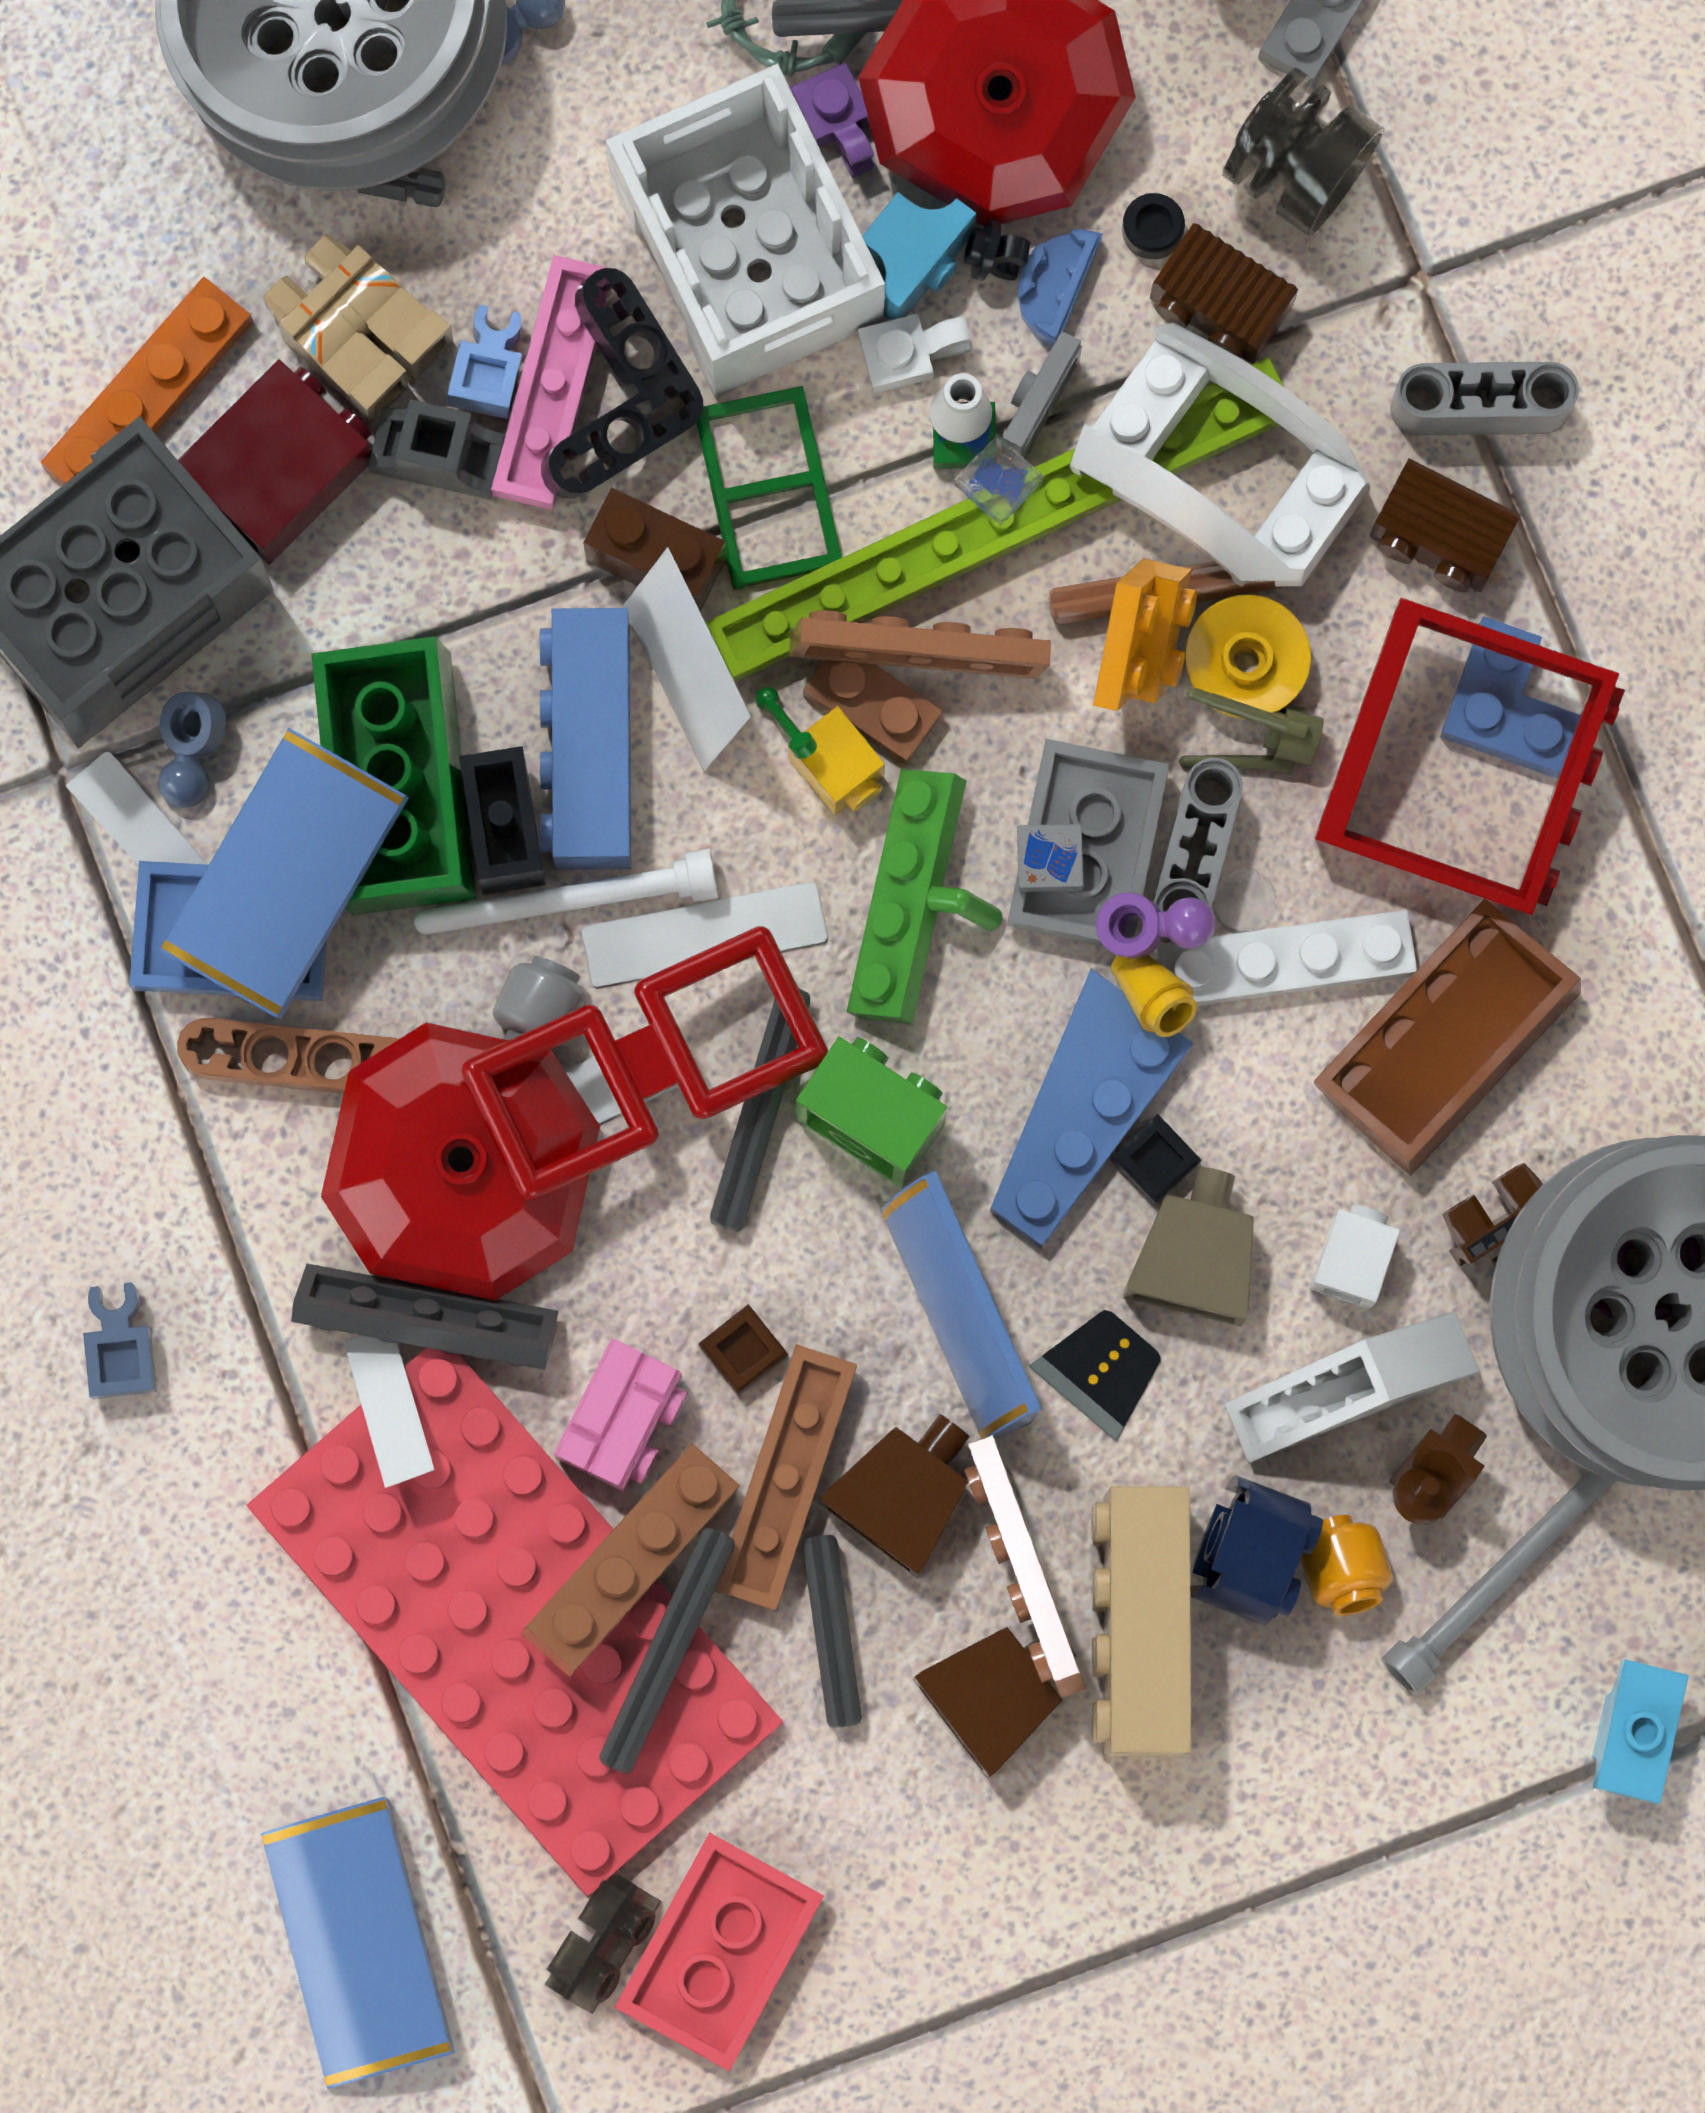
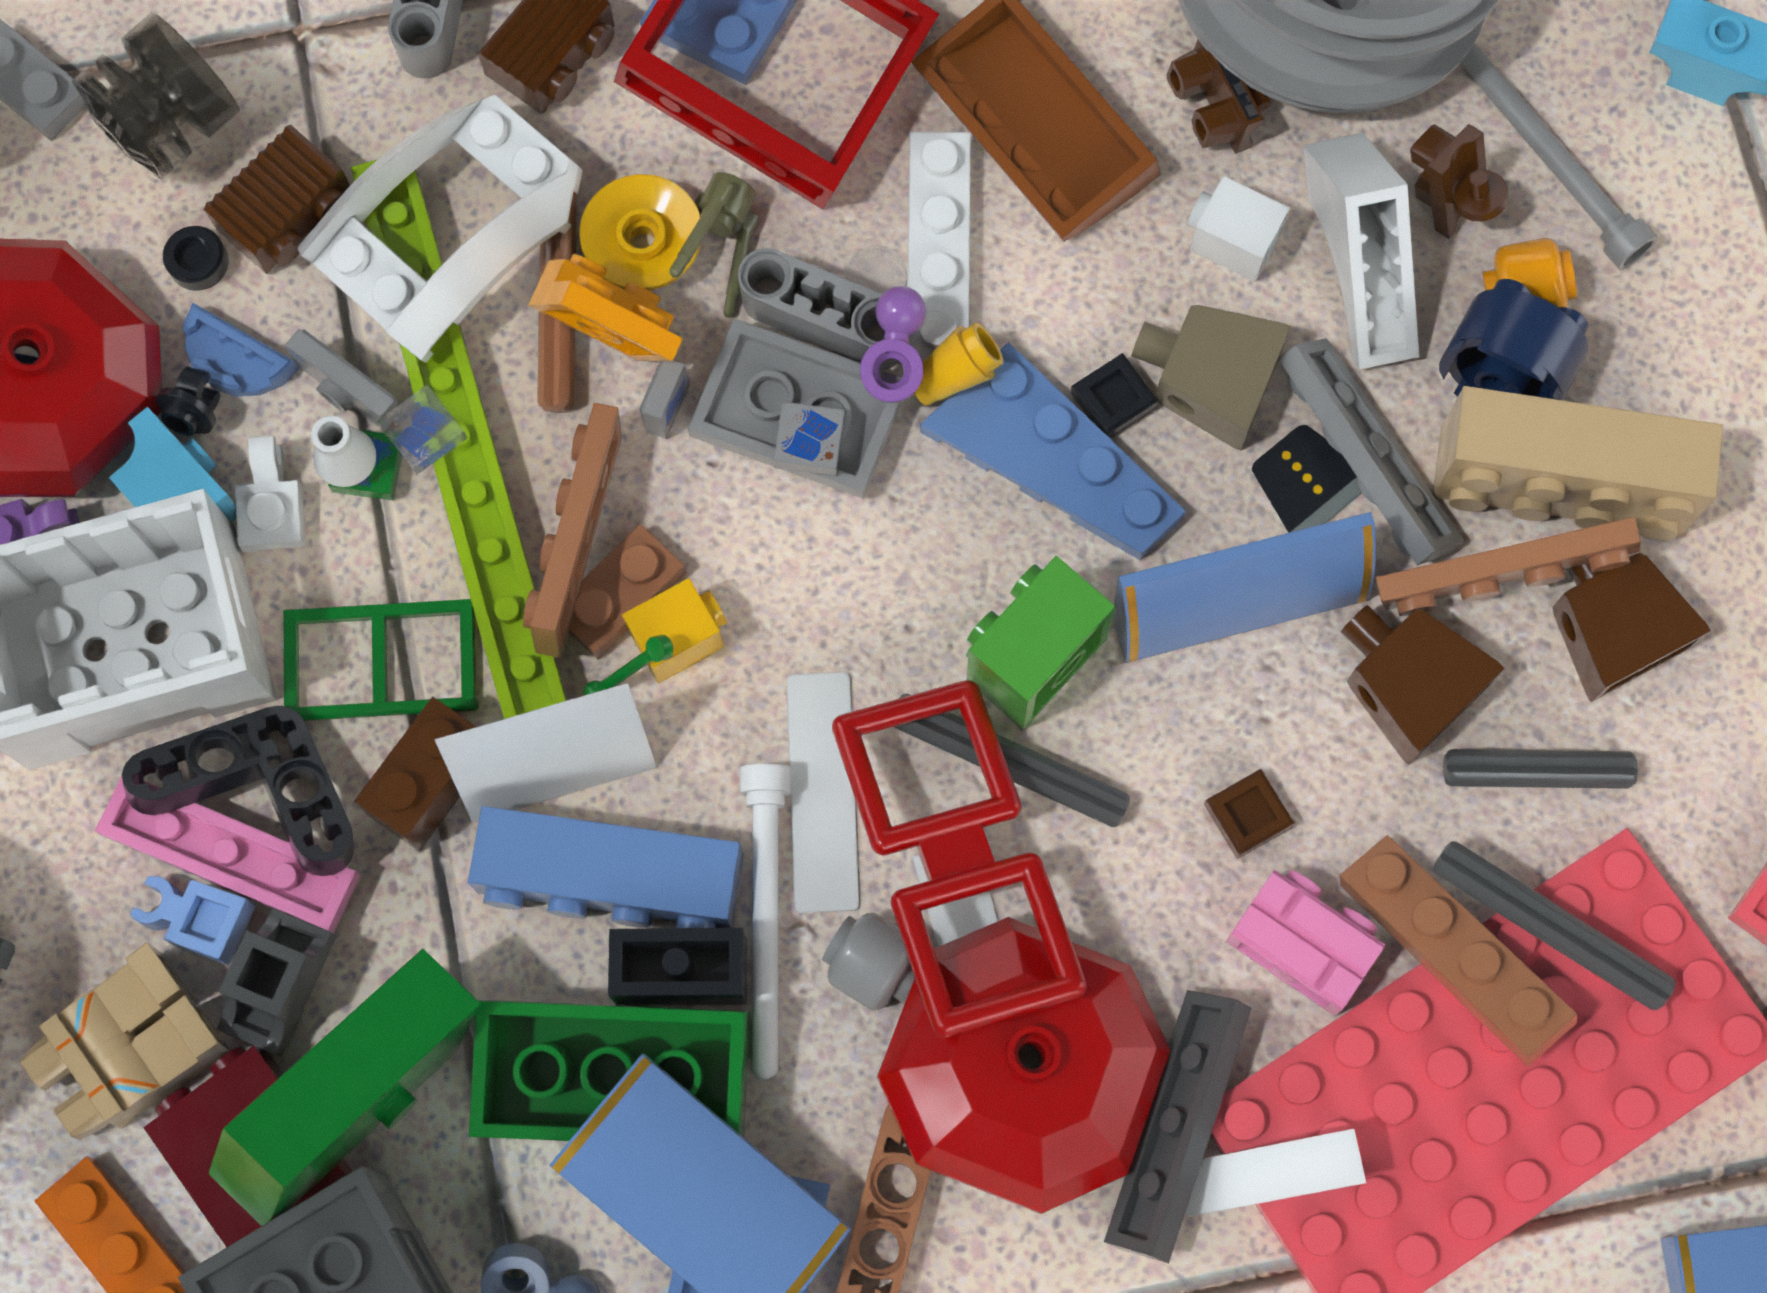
camera: 75 degrees left, 5 degrees down
(334, 531) = (343, 1089): none -> green brick
(786, 1477) = (1382, 785): nougat plate -> none
(910, 895) = (822, 581): bright green plate -> none
(1074, 711) = (664, 397): none -> light grey tile
(1135, 1422) = (1371, 450): none -> light grey plate

